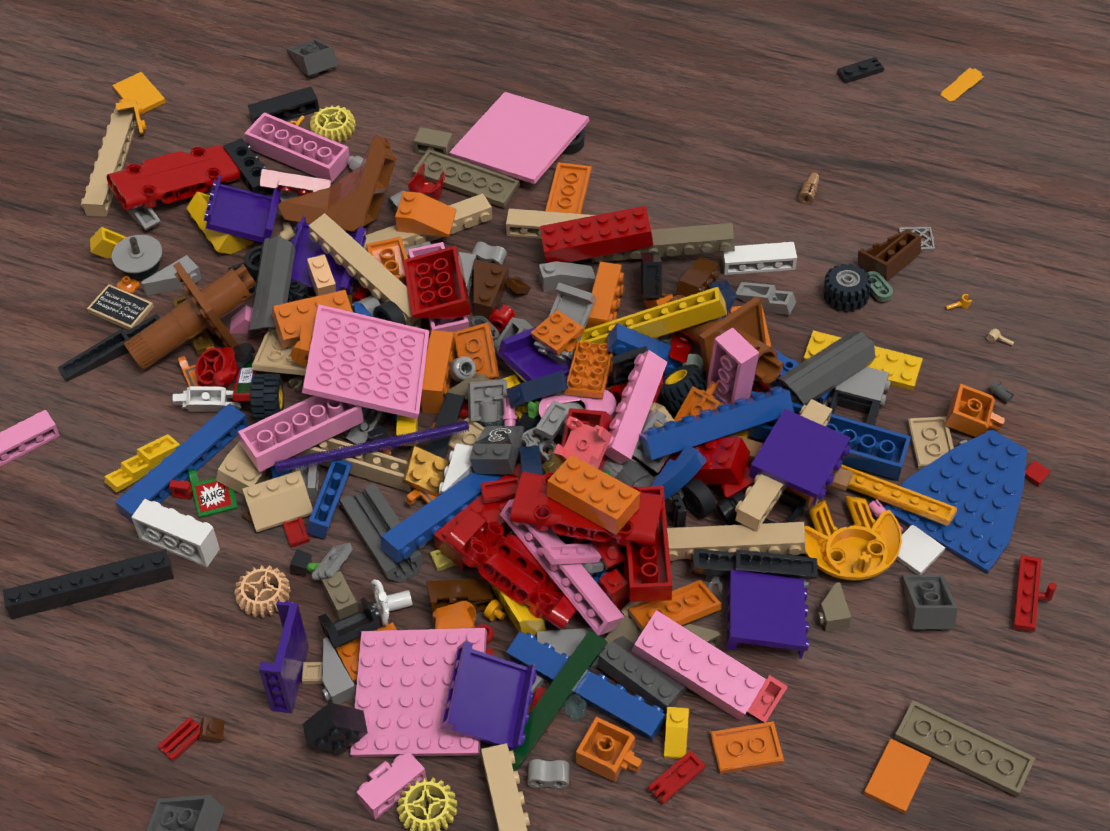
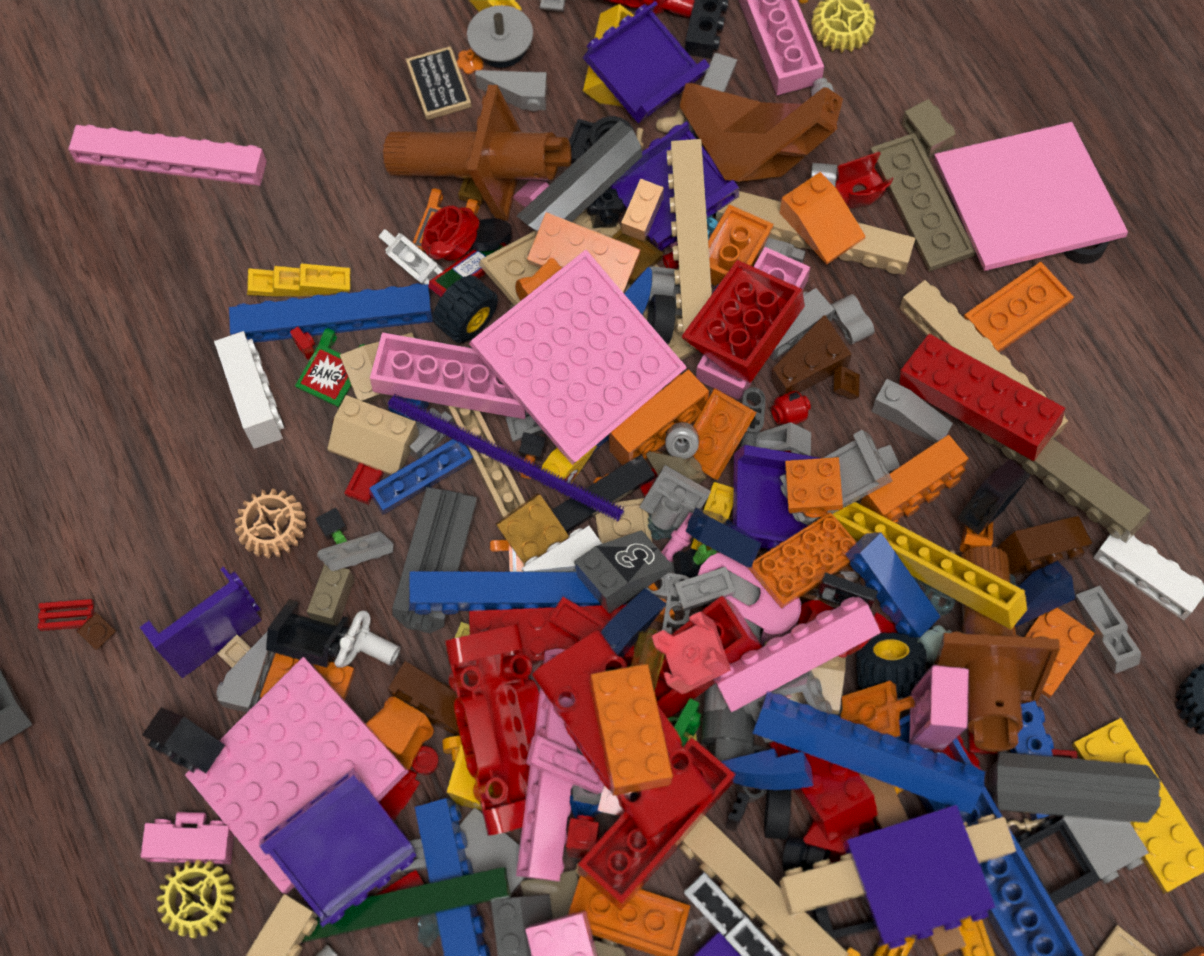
camera: 45 degrees right, 15 degrees up
(88, 584) = (134, 376): black brick -> none
(102, 352) = (381, 121): black slope -> none
(291, 182) = (726, 63): bracket -> none
(680, 350) = (936, 616): red piece -> none

